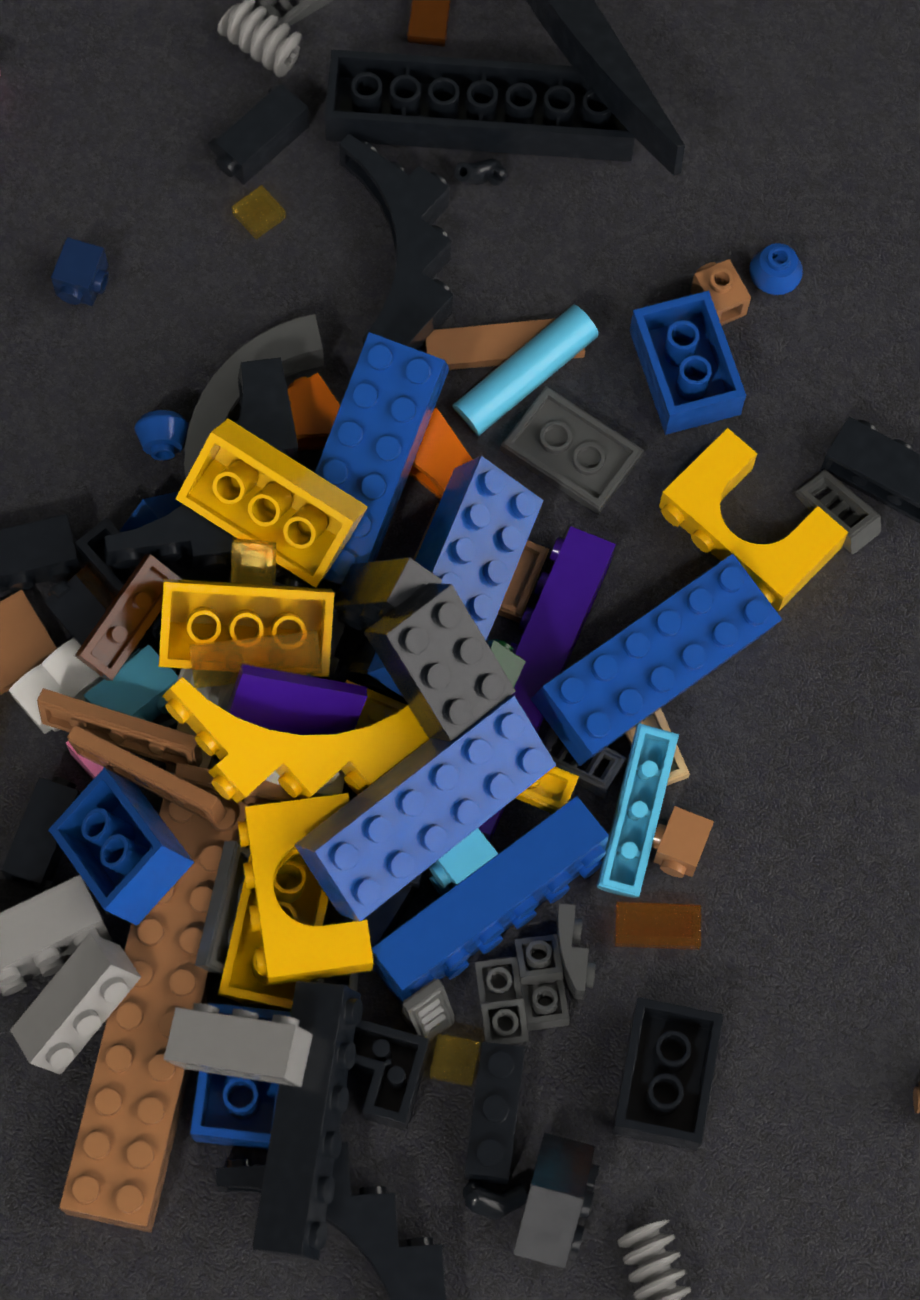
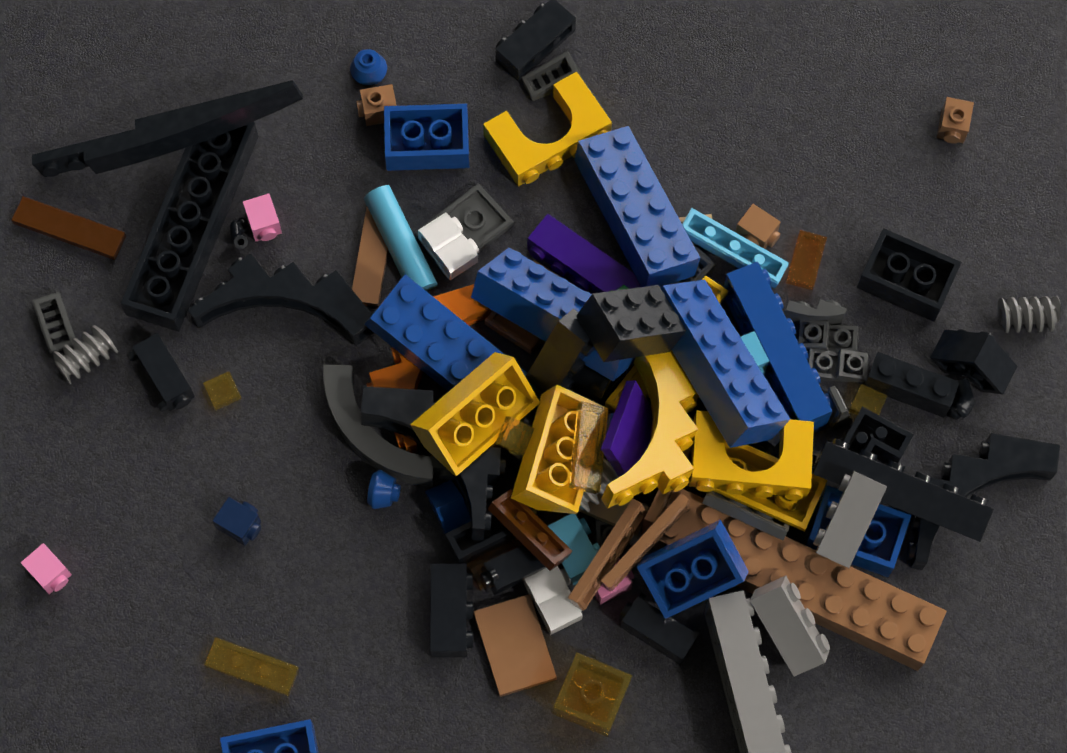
camera: 75 degrees left, 0 degrees up
(510, 193) = (262, 218): none -> bright pink brick
(530, 428) = (448, 245): none -> white brick

